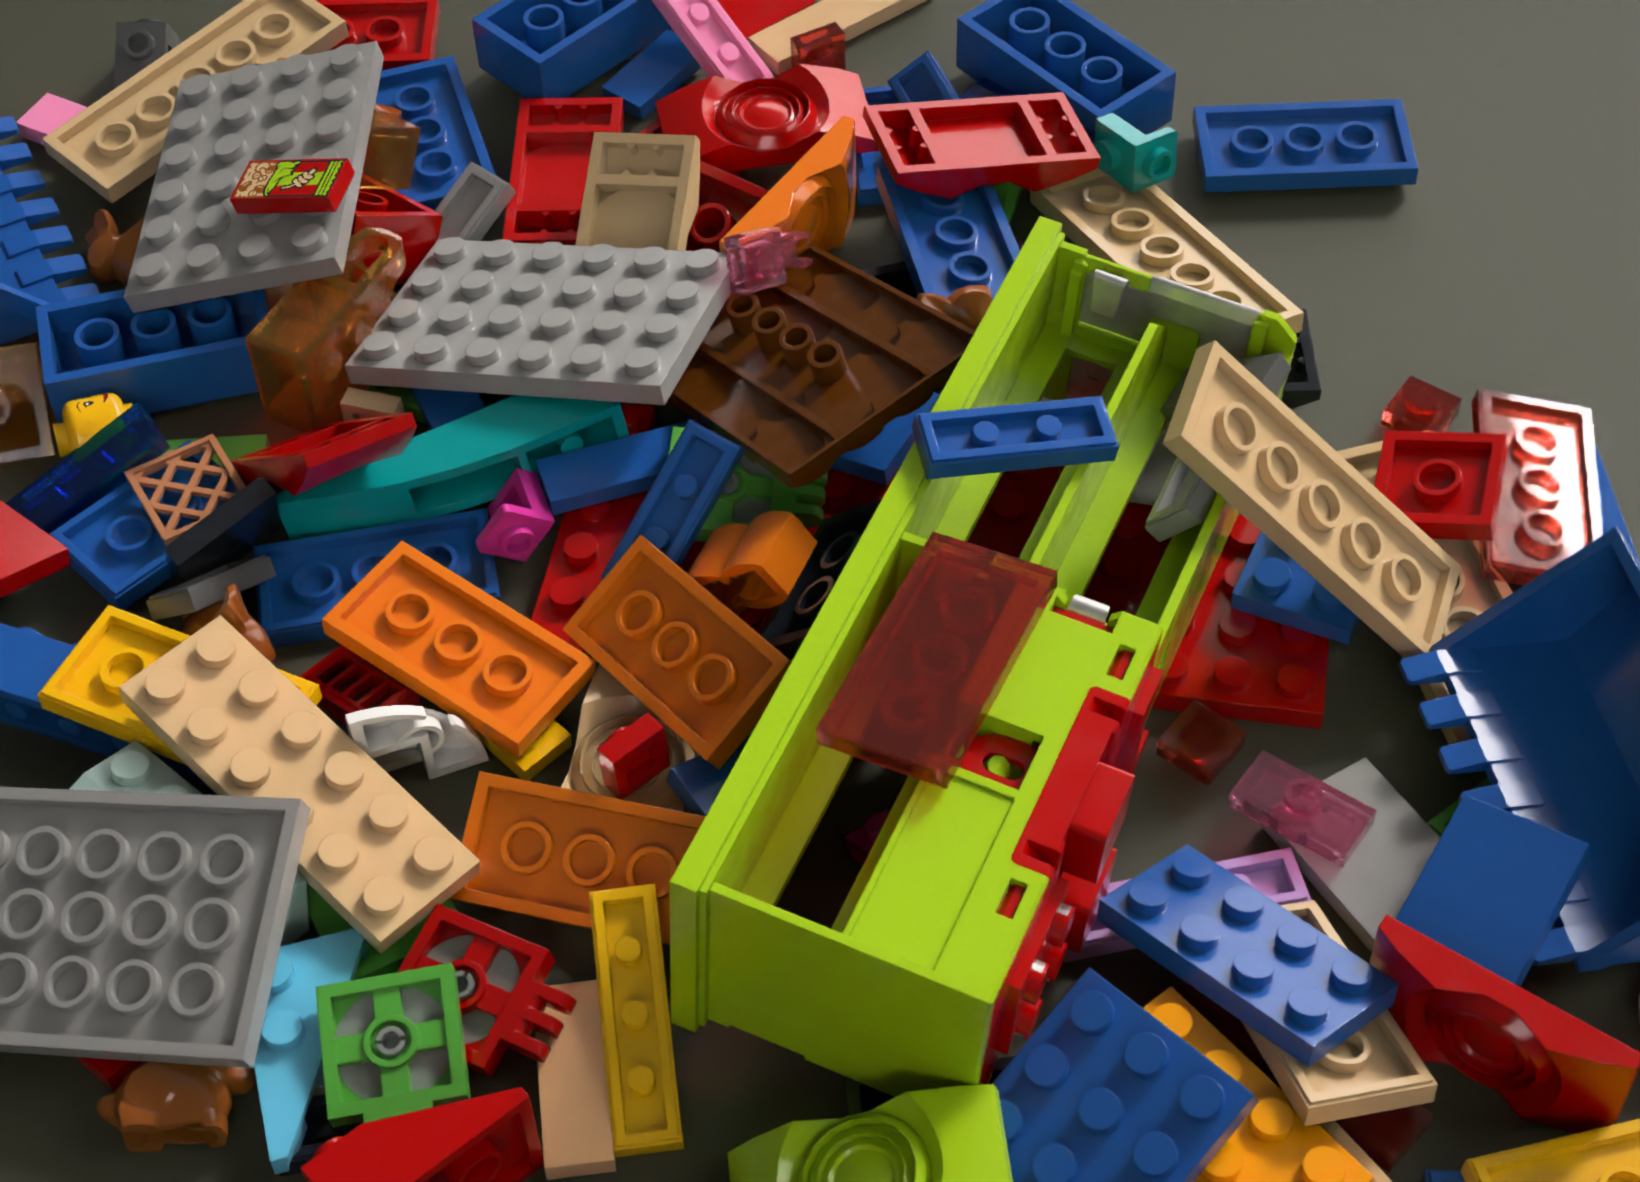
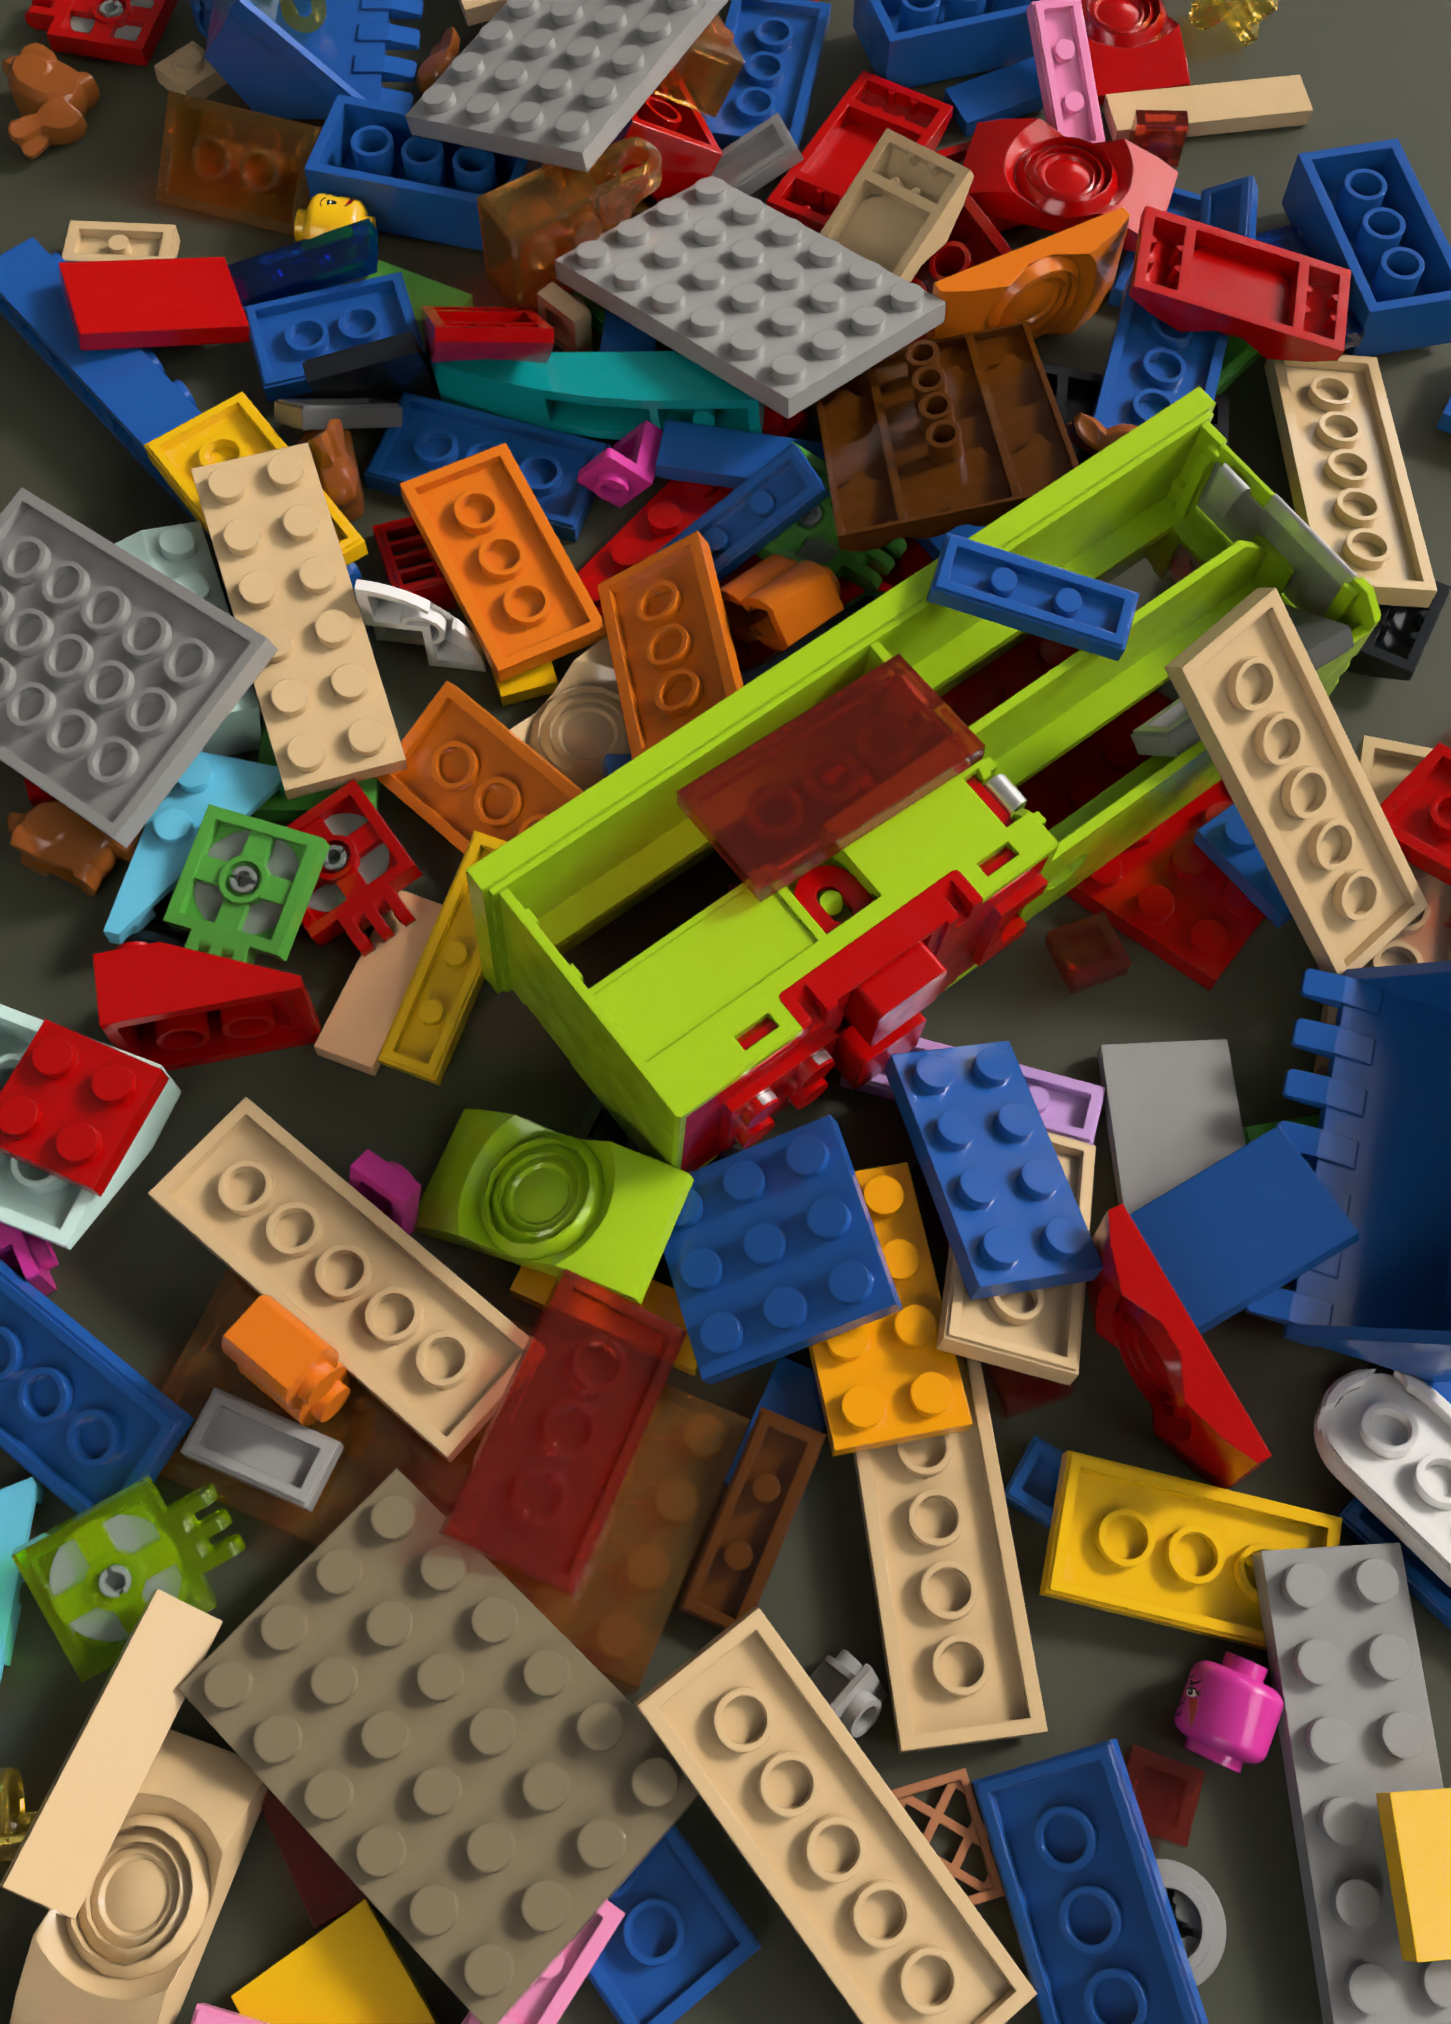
camera: 25 degrees right, 15 degrees up
(173, 460) = (374, 285): nougat window -> none
(292, 186) = (584, 69): tile -> none
(633, 756) = (579, 728): red plate -> none
(760, 257) = (960, 313): clear pink plate -> none
(1131, 155) = (1378, 363): teal bracket -> none
(1302, 808) = (1135, 1059): clear pink plate -> none

